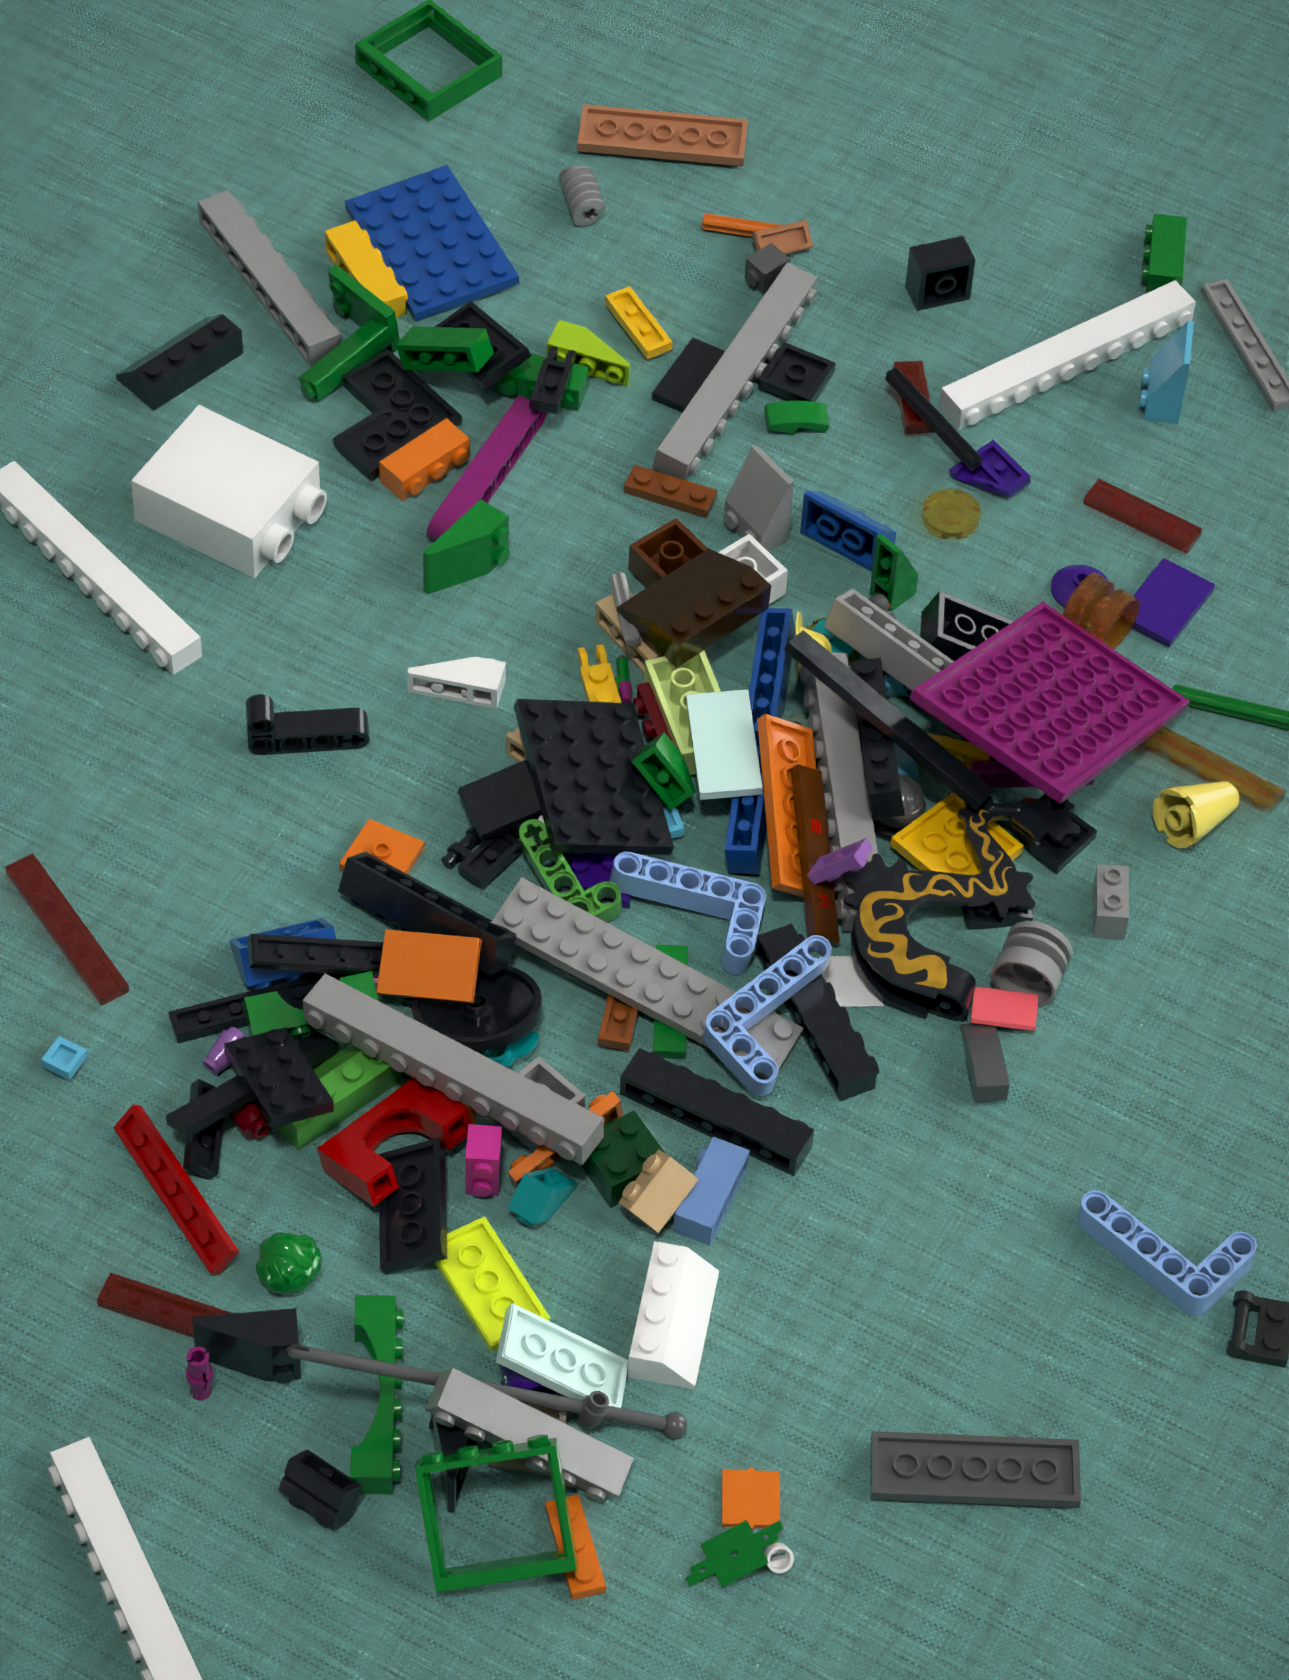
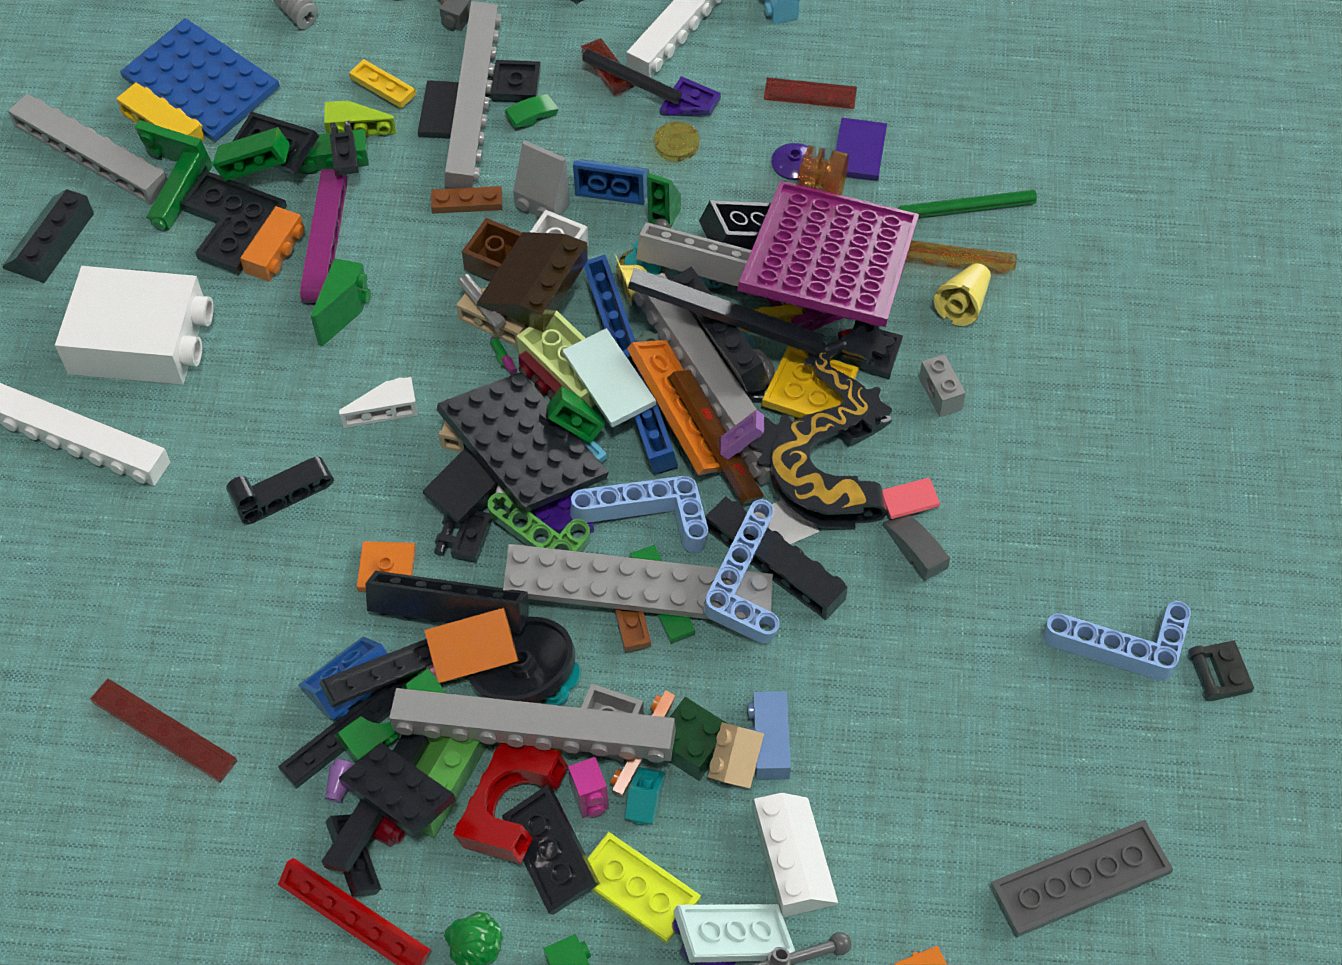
camera: 20 degrees left, 5 degrees up
(64, 1058) = (211, 842): medium azure plate -> none
(597, 679) = (483, 362): yellow hinge -> none
(716, 1111) = (742, 668): black brick -> none
(1032, 960) = (914, 453): light grey wheel -> none

